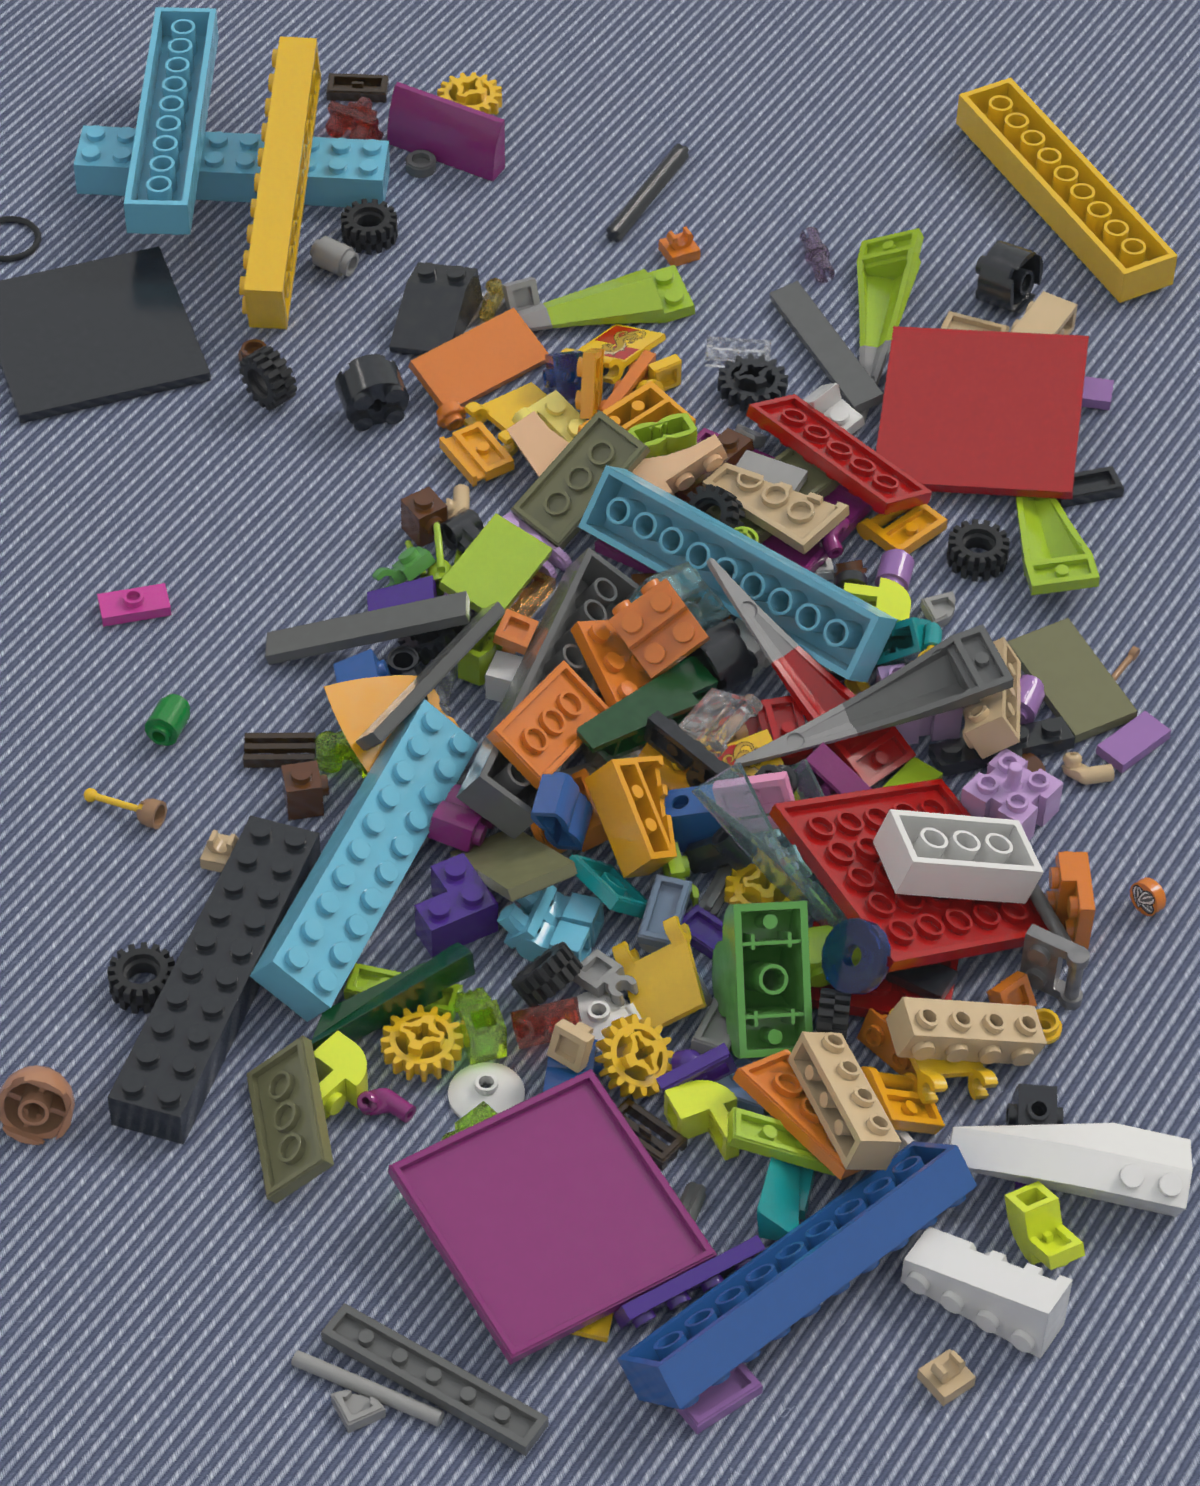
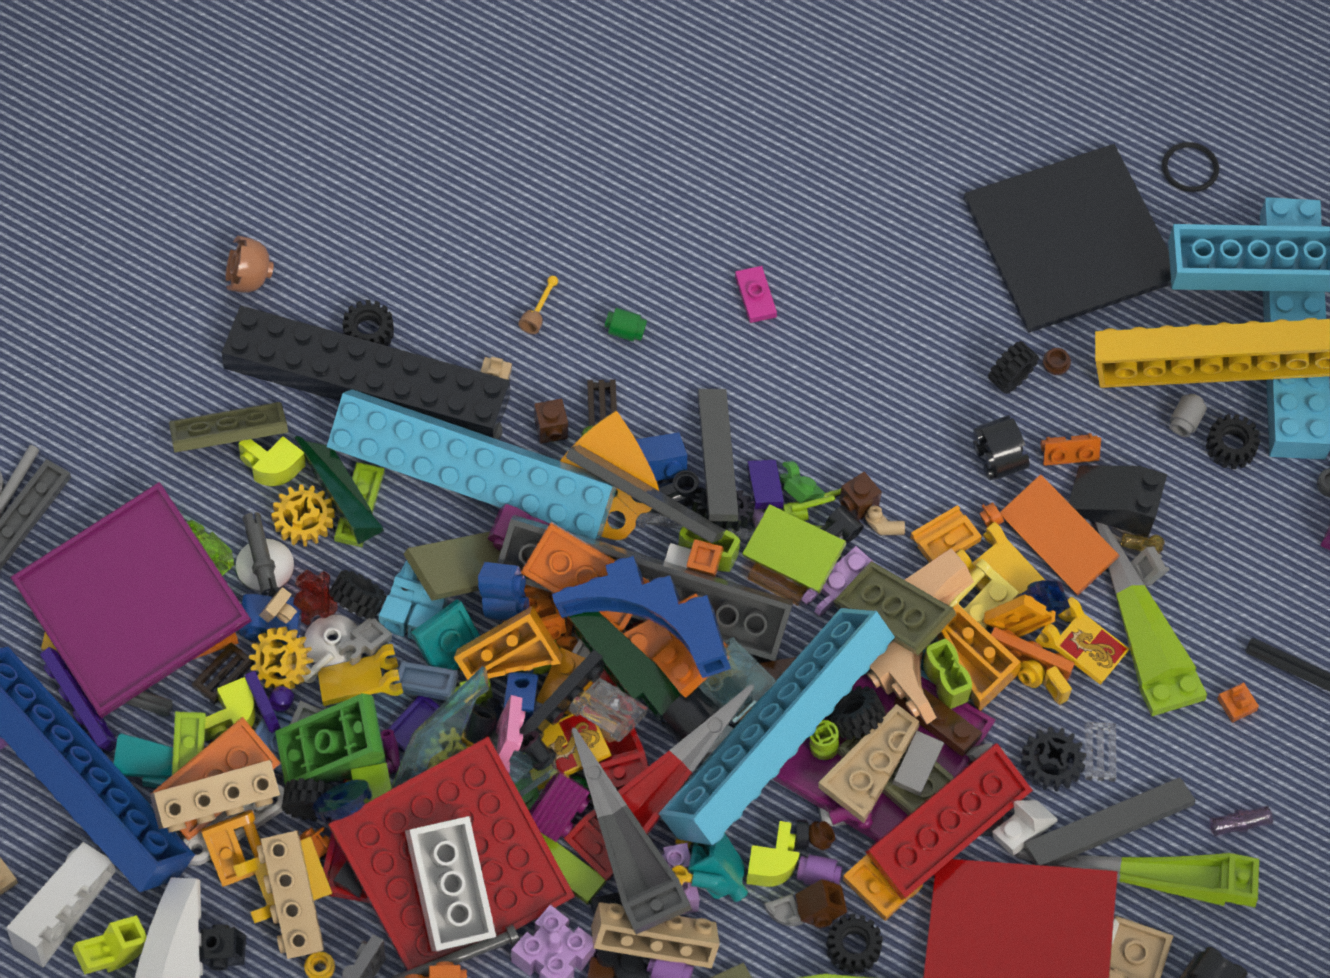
camera: 85 degrees right, 15 degrees up
(367, 339) = (1078, 449): none -> orange hinge
(385, 1101) = (254, 494): magenta arm -> none
(459, 909) = (421, 528): dark purple brick -> none
(476, 1079) = (263, 565): none -> dark grey pin
(481, 1026) = (312, 554): clear neon green brick -> none
(640, 593) = (657, 601): none -> blue arch
(940, 567) = (821, 903): none -> reddish brown brick
(1013, 990) = (344, 941): orange tile -> none

